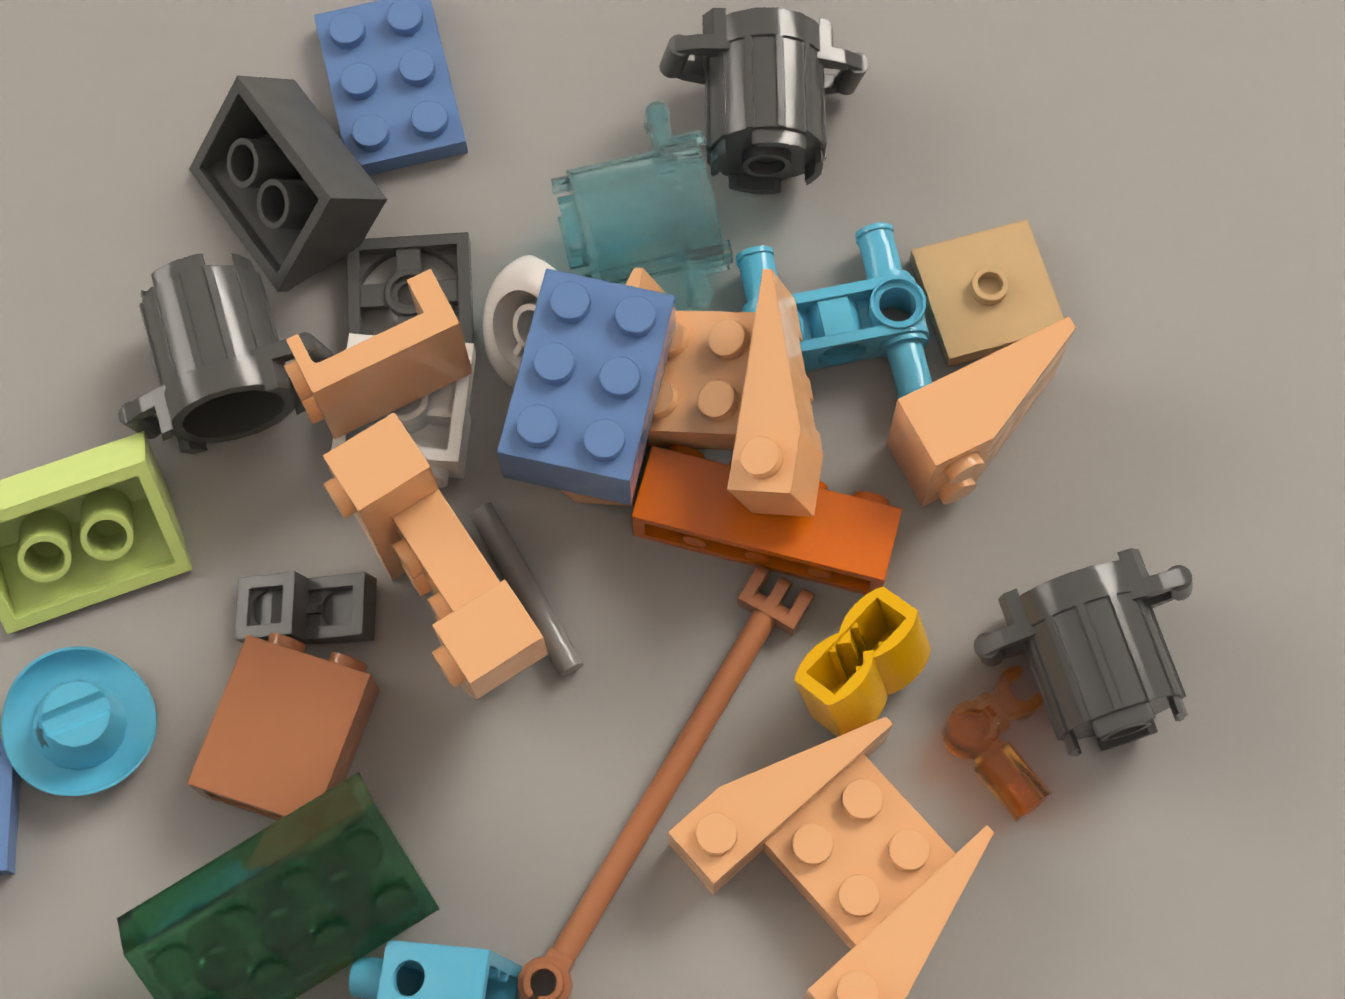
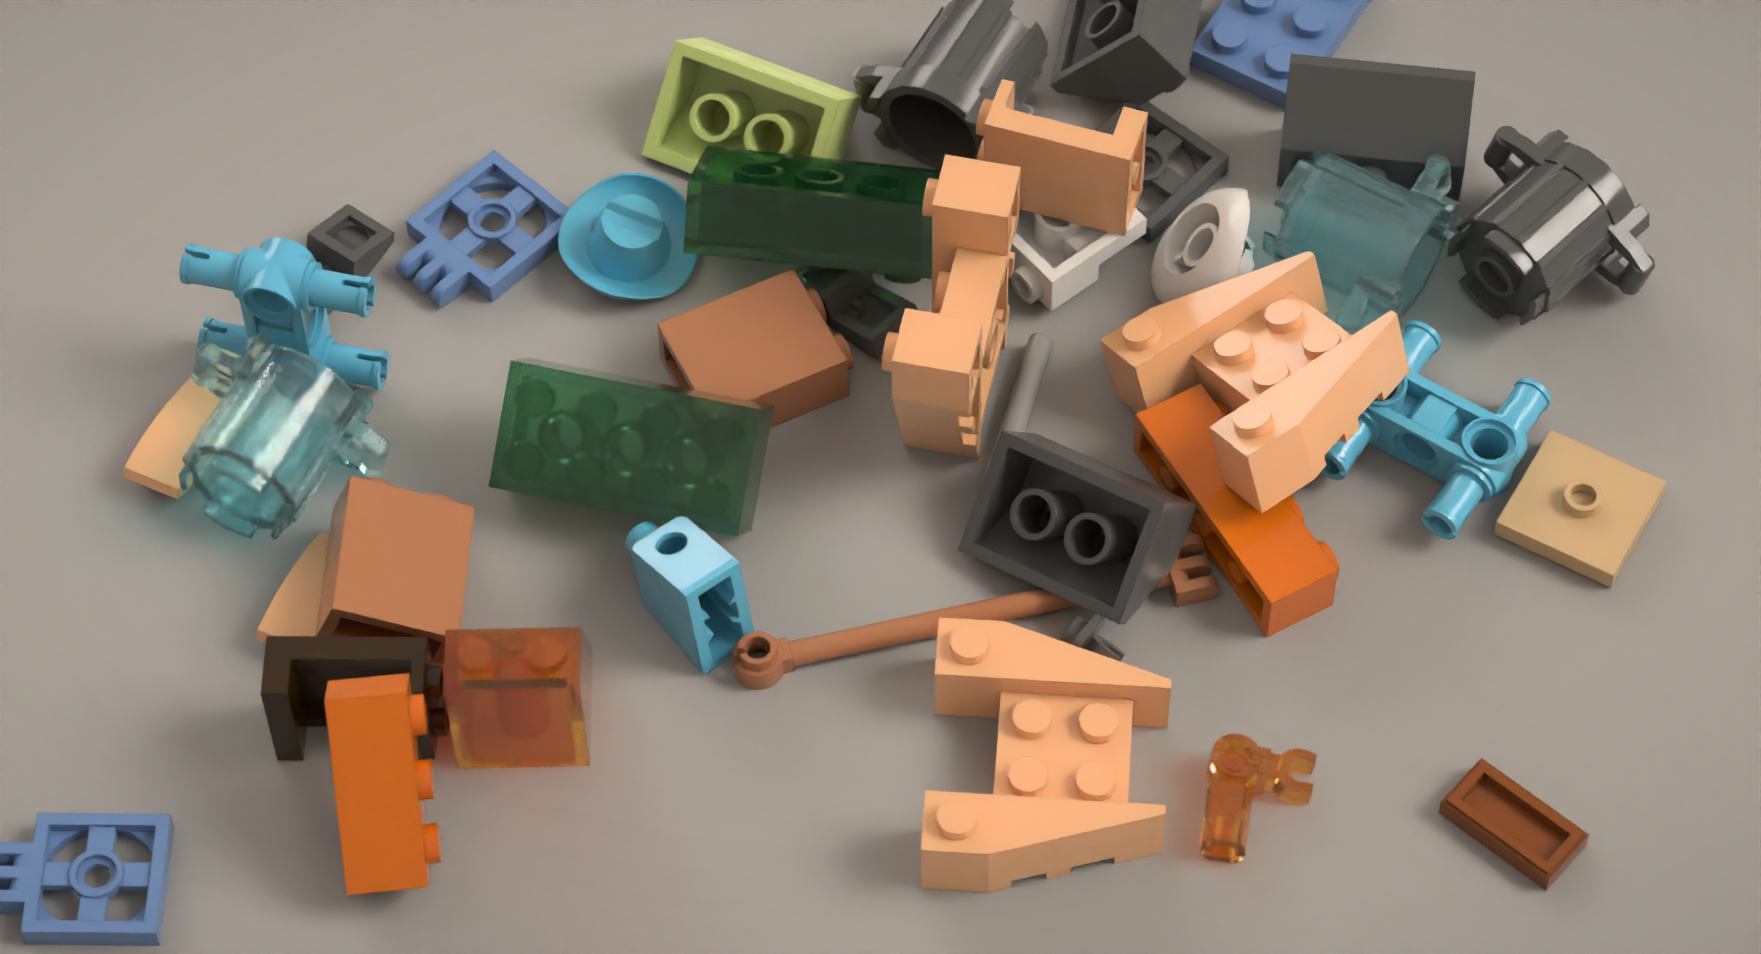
camera: 45 degrees right, 15 degrees down
(215, 570) = (810, 212): none -> clear green brick
(560, 117) = (1377, 116): none -> dark grey slope
(587, 386) = (1183, 285): medium blue brick -> none
(675, 648) = (1075, 525): none -> dark grey slope
(777, 735) = (1084, 635): none -> dark grey plate
(871, 657) = (1201, 643): yellow brick -> none
(960, 422) = (1472, 558): light nougat slope -> none
(1096, 648) = (1378, 775): dark grey container -> none
(1222, 584) = (1513, 823): none -> dark orange tile

